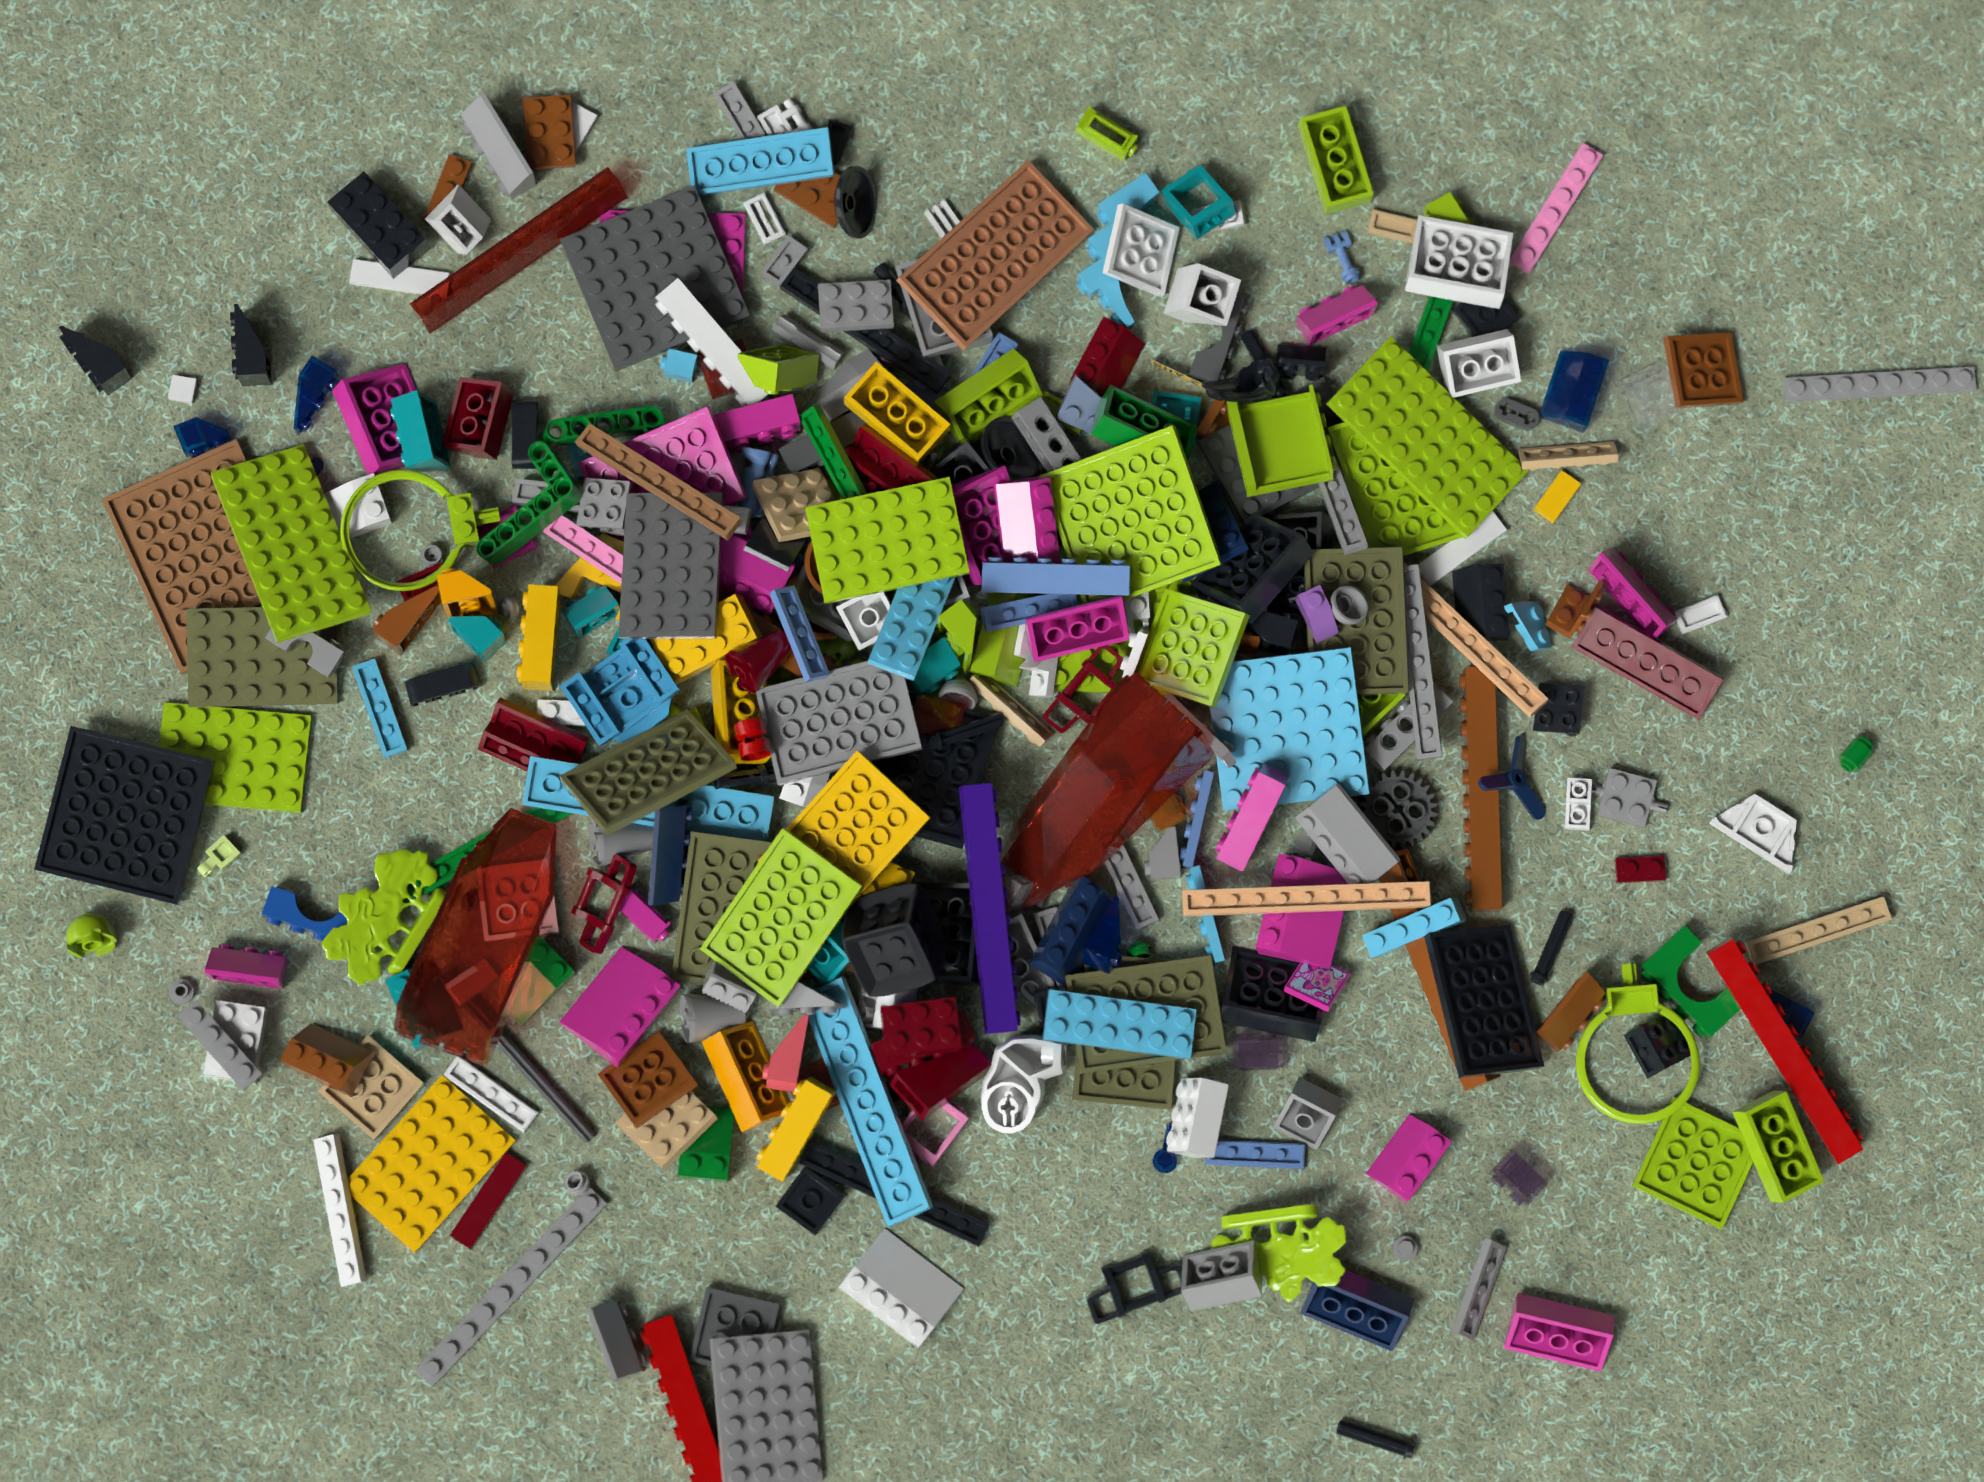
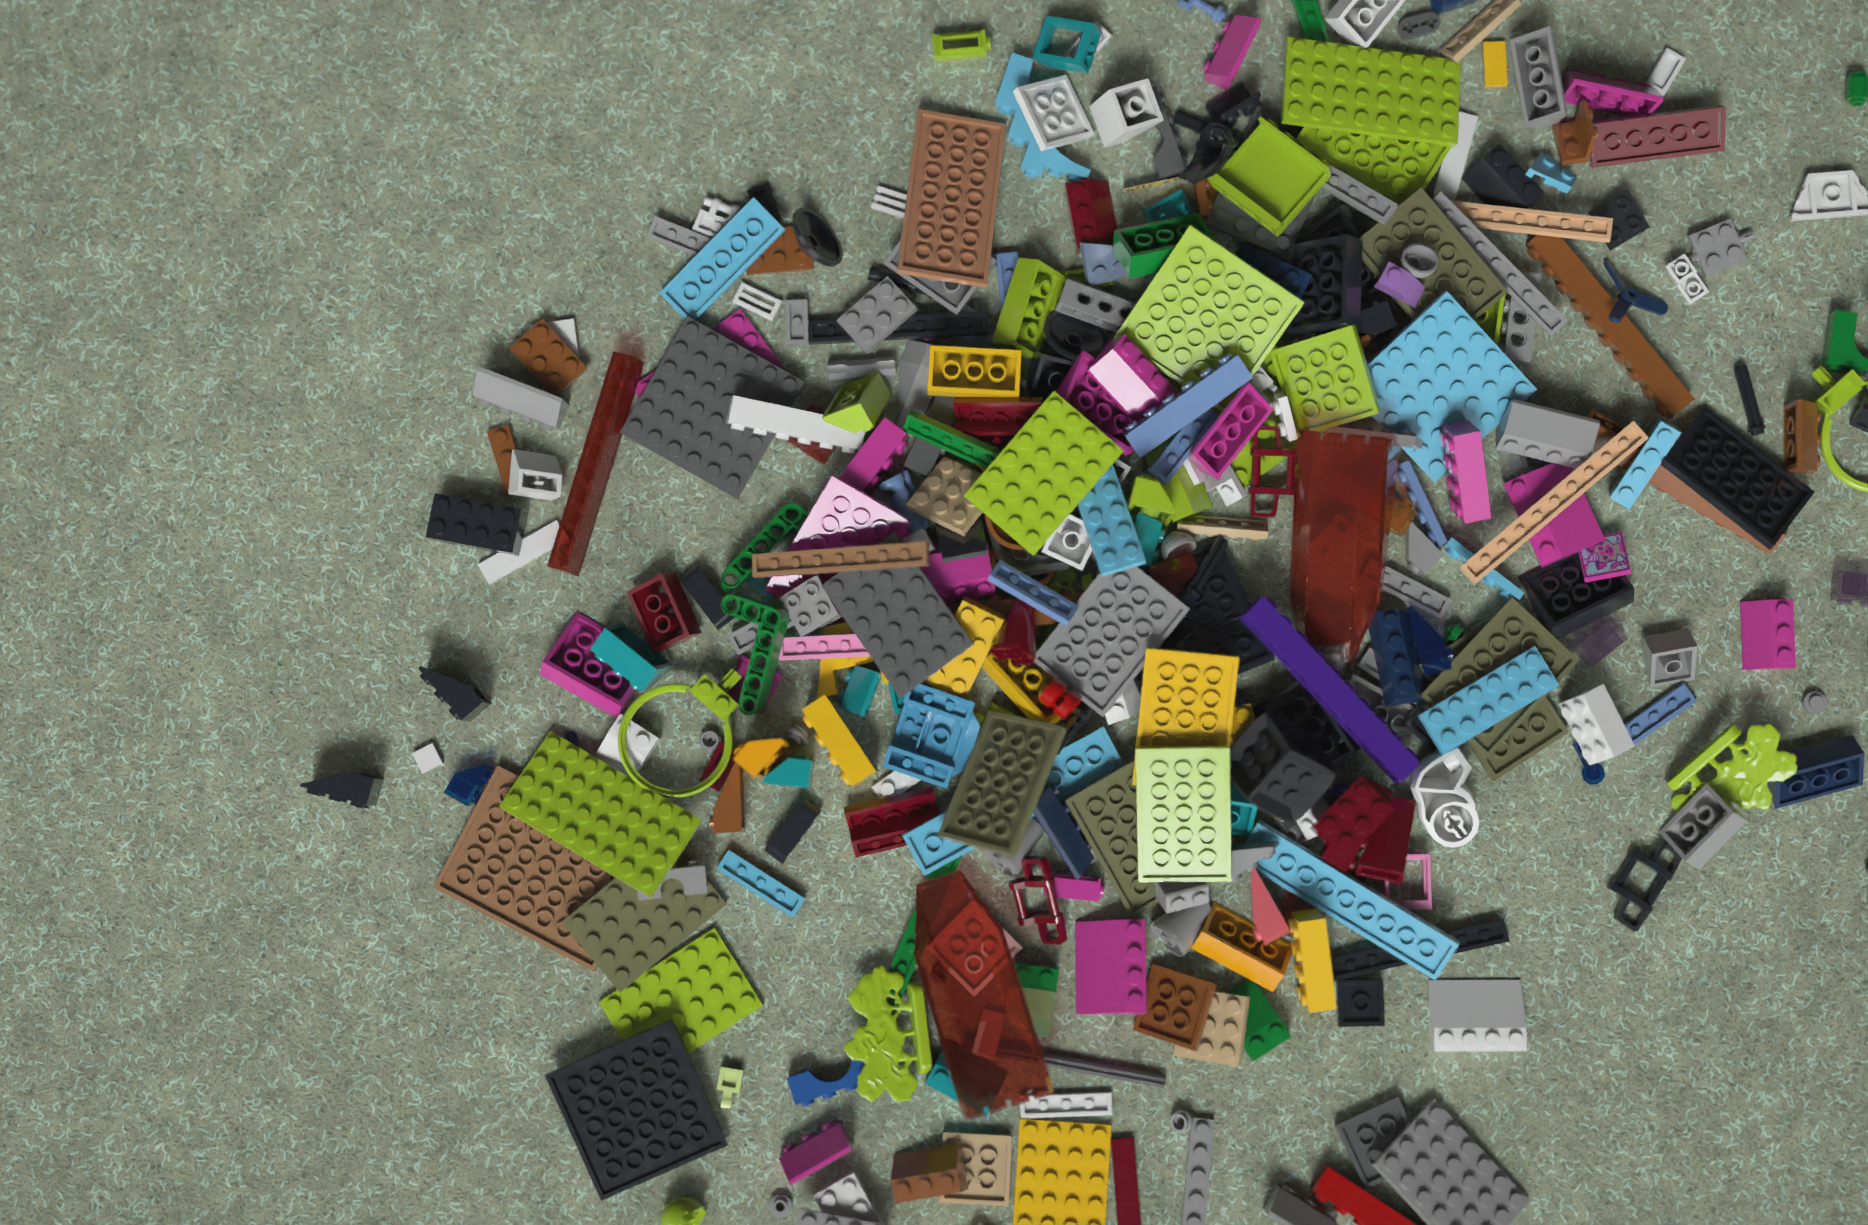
camera: 20 degrees left, 5 degrees up
(312, 387) = (522, 680): clear blue slope -> none
(679, 365) = (780, 458): medium azure brick -> none
(1415, 797) = (1564, 365): dark grey gear -> none
(1579, 534) = (1538, 78): none -> light grey slope
(1640, 869) = (1767, 293): dark red plate -> none

